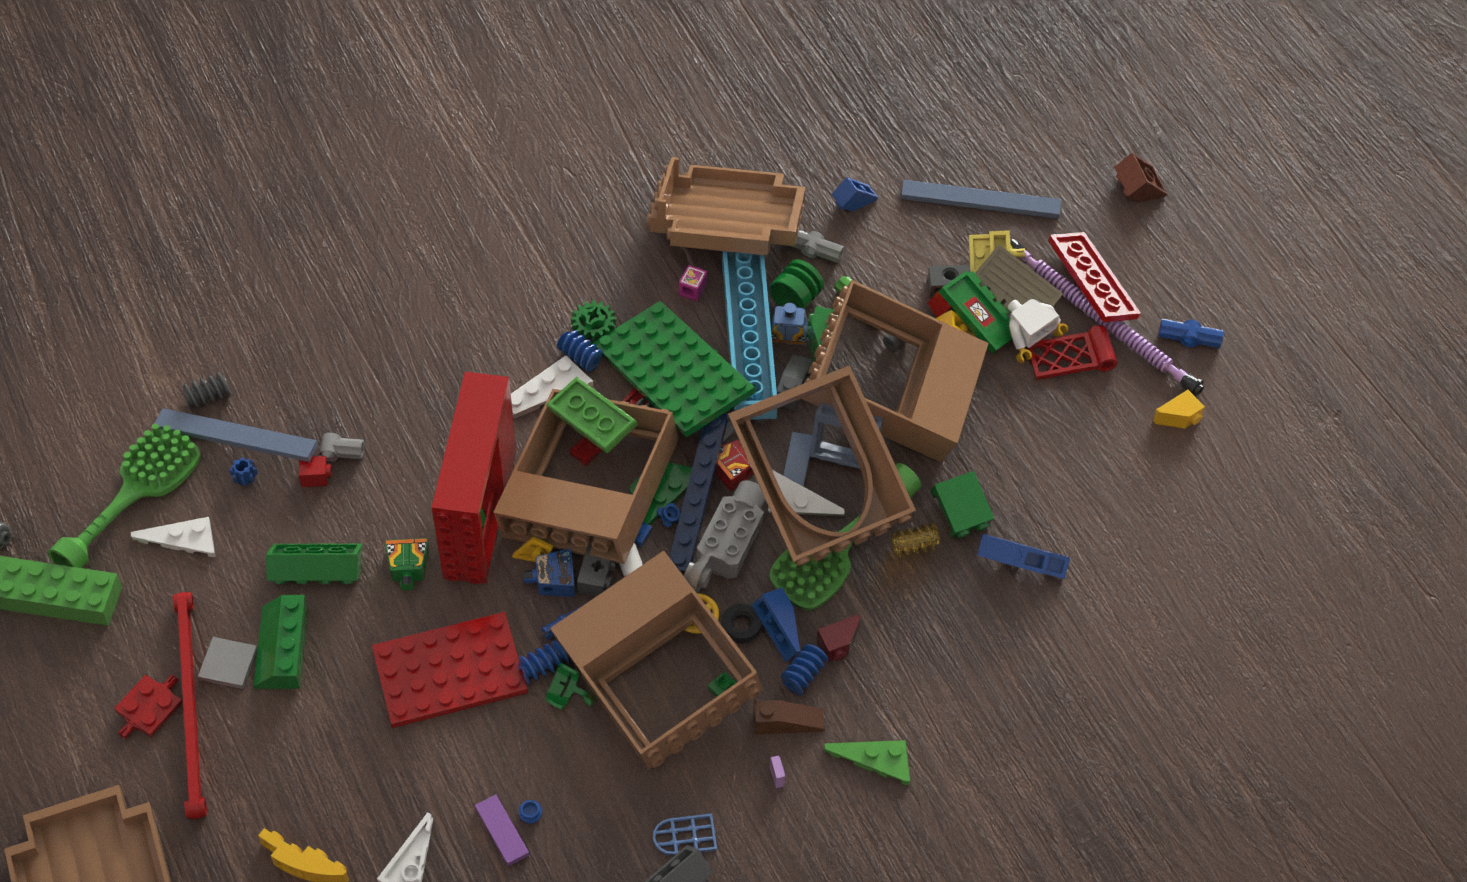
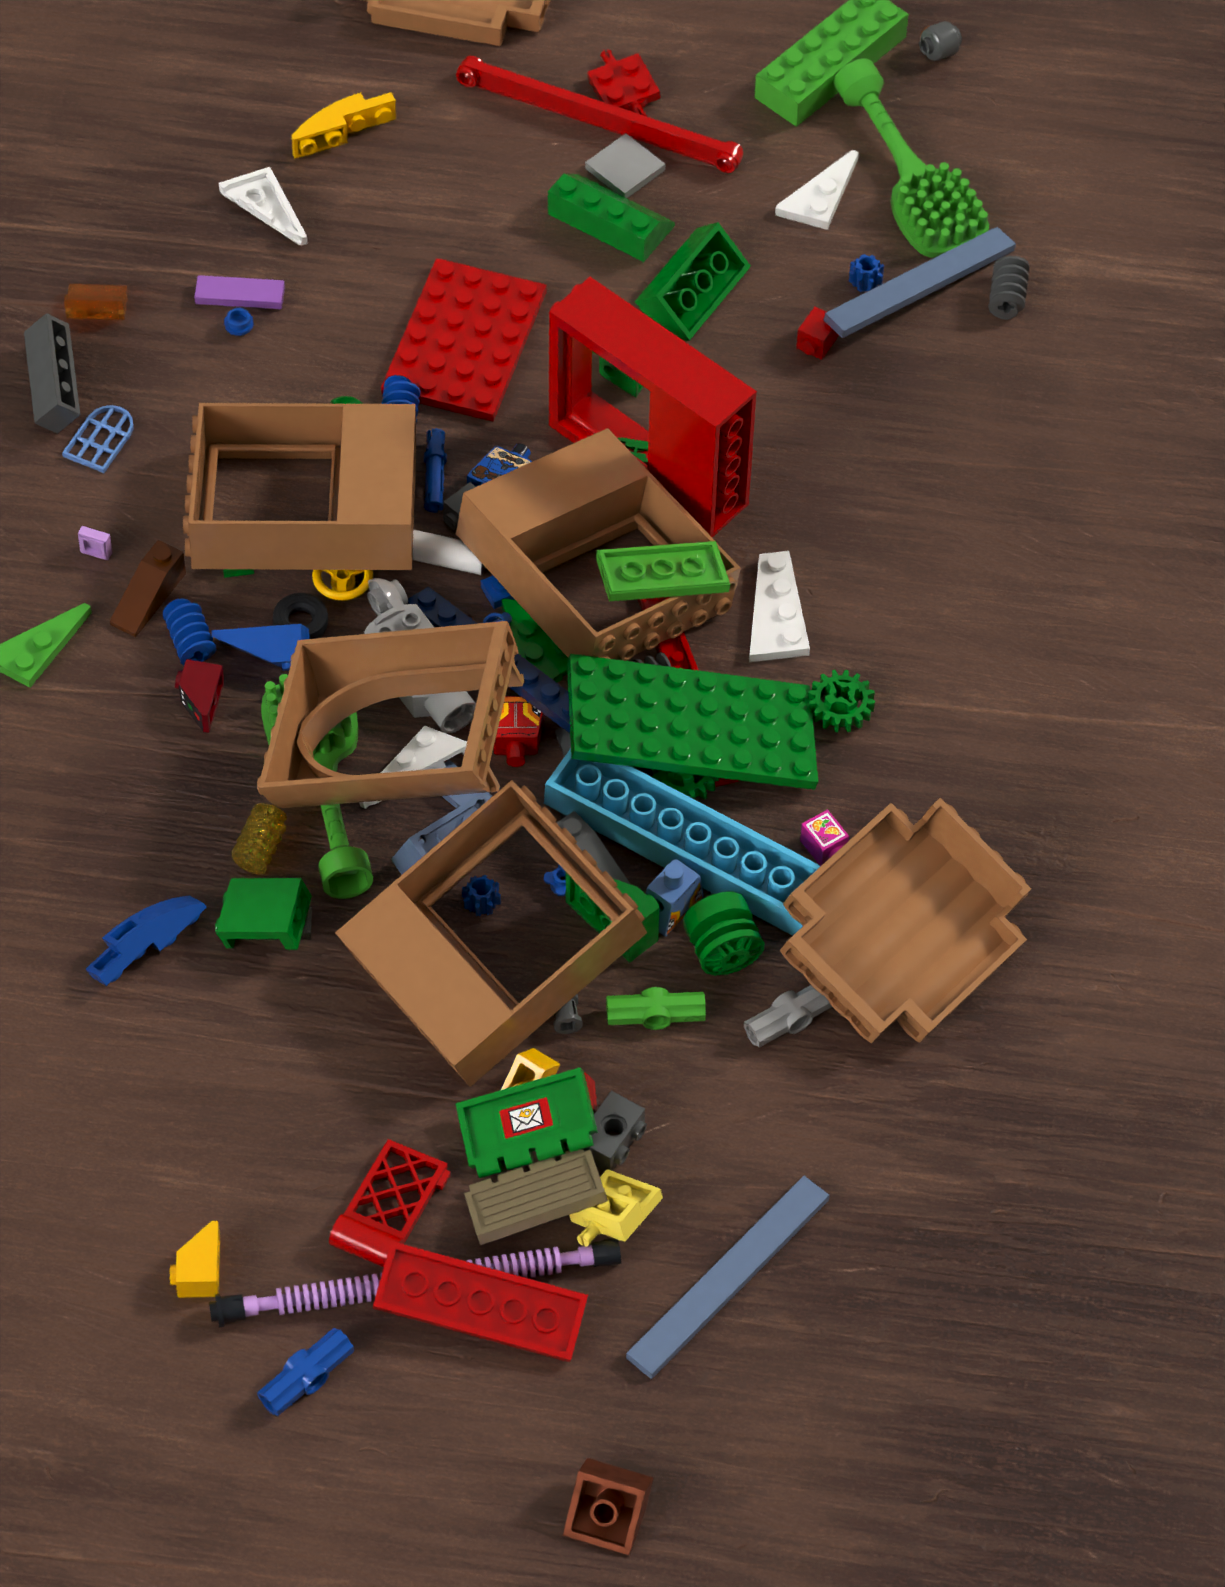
camera: 125 degrees right, 0 degrees up
(334, 446) = (837, 368): light grey piece -> none
(580, 350) = (801, 659): blue piece -> none
(853, 194) = (841, 1115): blue slope -> none
(1032, 323) = (459, 1169): white torso -> none

